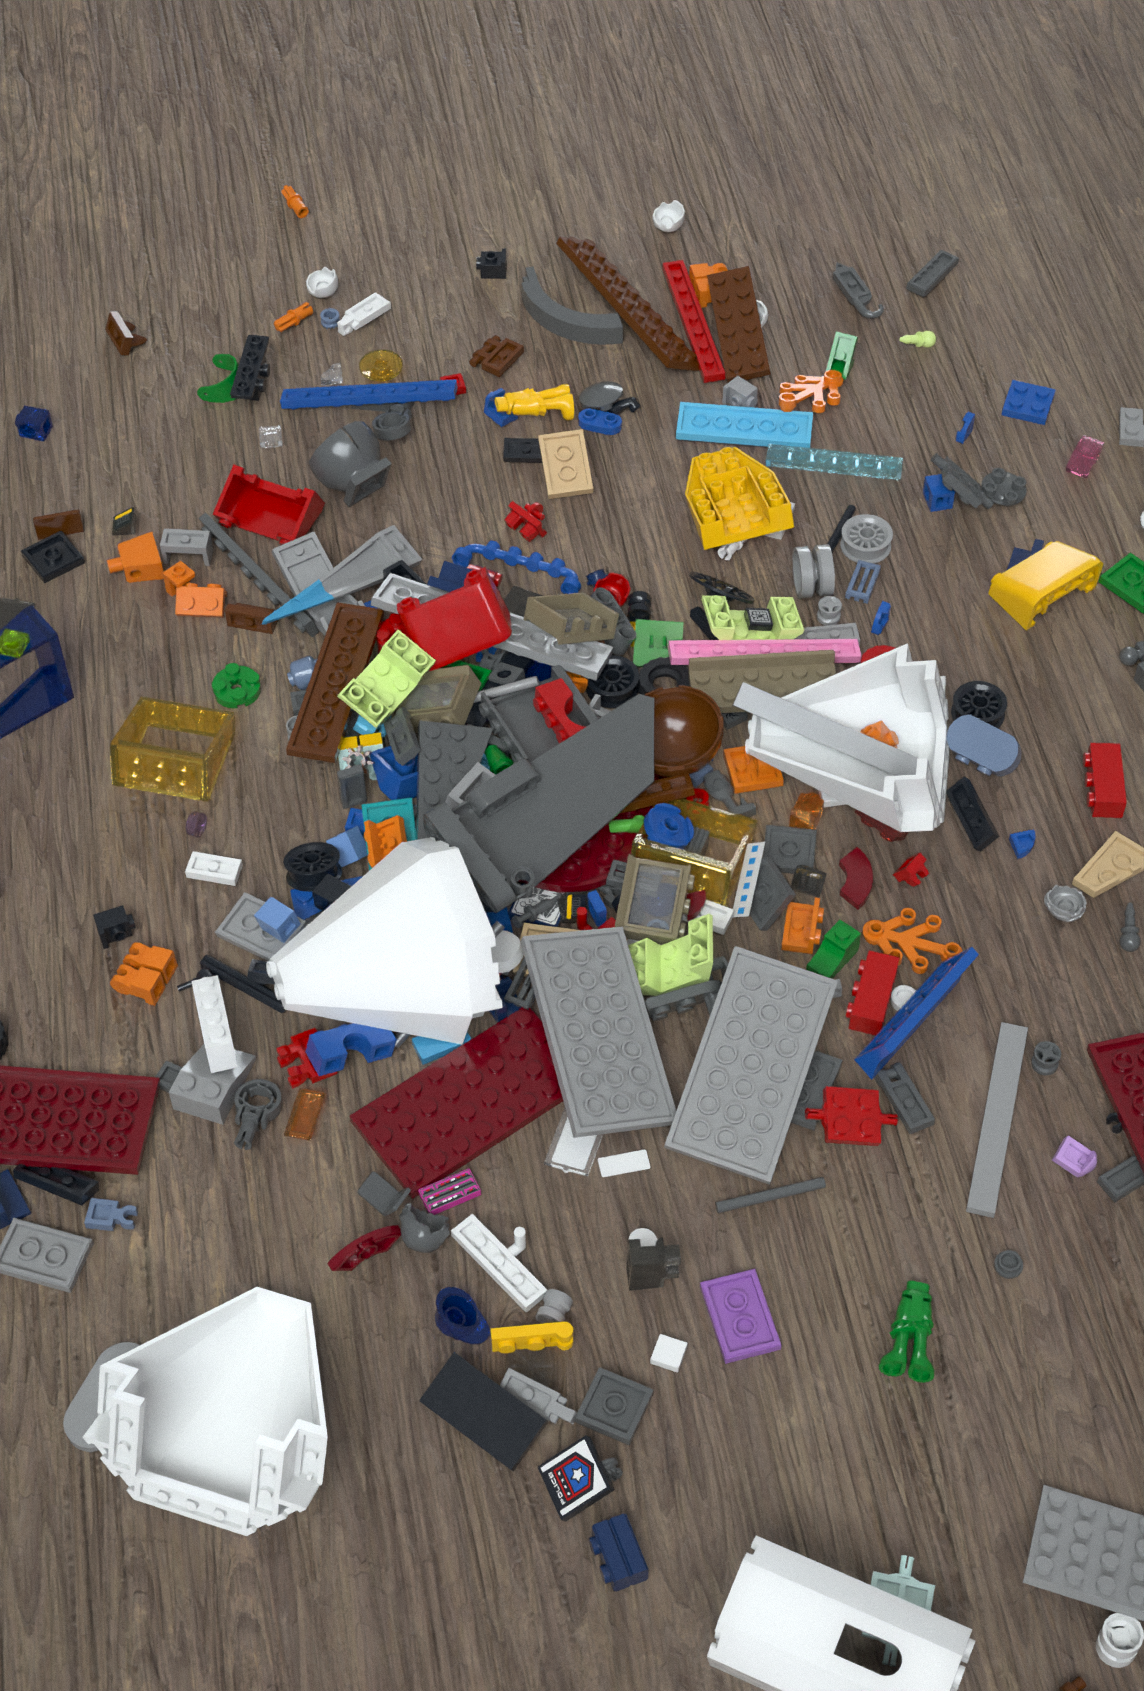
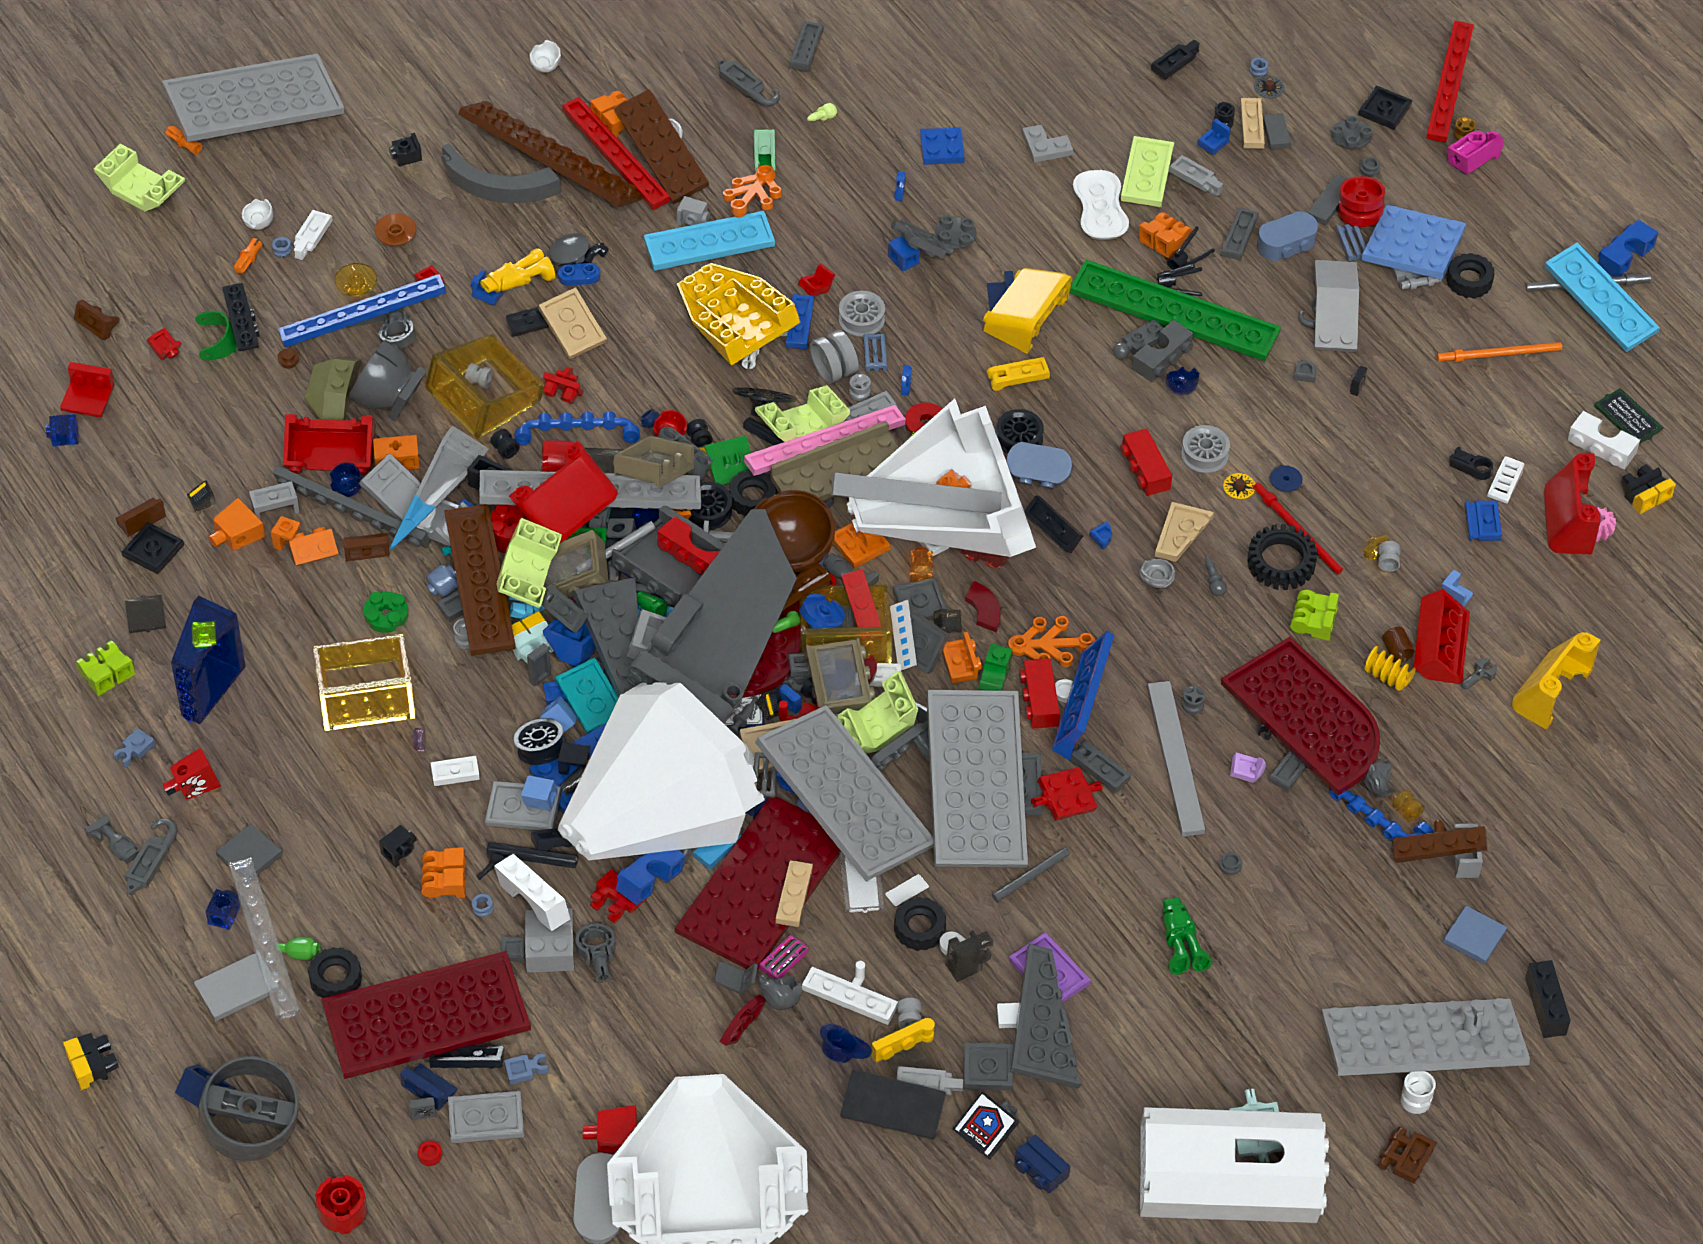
camera: 25 degrees left, 0 degrees up
(79, 395) = (88, 389): none -> red bracket
(160, 1316) = (612, 1128): none -> red torso
(165, 1027) = (482, 898): none -> sand blue bush
(170, 373) = (164, 344): none -> red bracket
(226, 222) = (135, 182): none -> yellowish green slope
(262, 547) = (346, 479): none -> clear blue hair
(270, 436) = (289, 376): clear tile -> none
(279, 417) = (288, 358): none -> reddish brown plate
(292, 460) = (331, 386): none -> olive wedge
(304, 1114) = (638, 939): clear orange tile -> none
(332, 375) = (314, 301): clear tile -> none
(334, 535) = (402, 448): none -> orange brick
(351, 758) = (543, 639): gear -> none
(373, 179) = (252, 97): none -> light grey plate
(383, 838) = (595, 701): orange bracket -> none
(435, 526) = (465, 401): none -> clear yellow windscreen
(437, 555) = (504, 443): none -> black wheel
(443, 331) = (395, 229): none -> dark orange dish
(449, 487) = (479, 375): none -> light grey wheel
(450, 577) = (542, 458): dark blue panel -> none
(492, 1123) = (794, 893): none -> tan plate
(501, 355) = (461, 238): reddish brown plate -> none
(612, 1187) = (923, 907): none -> black tyre
(694, 1390) = (1042, 1029): none -> dark grey wing
(716, 826) = (860, 599): none -> red arch
(758, 619) = (807, 413): tile -> none
(804, 521) = (798, 335): none -> blue plate
(834, 461) = (800, 250): clear light blue plate -> none
(835, 497) = (818, 282): none -> red bracket
(835, 537) = (834, 309): black bar -> none
(910, 867) = (1025, 584): red tile -> none
(1005, 646) = (1018, 373): none -> yellow plate
(1084, 456) = (1011, 182): clear pink slope -> none

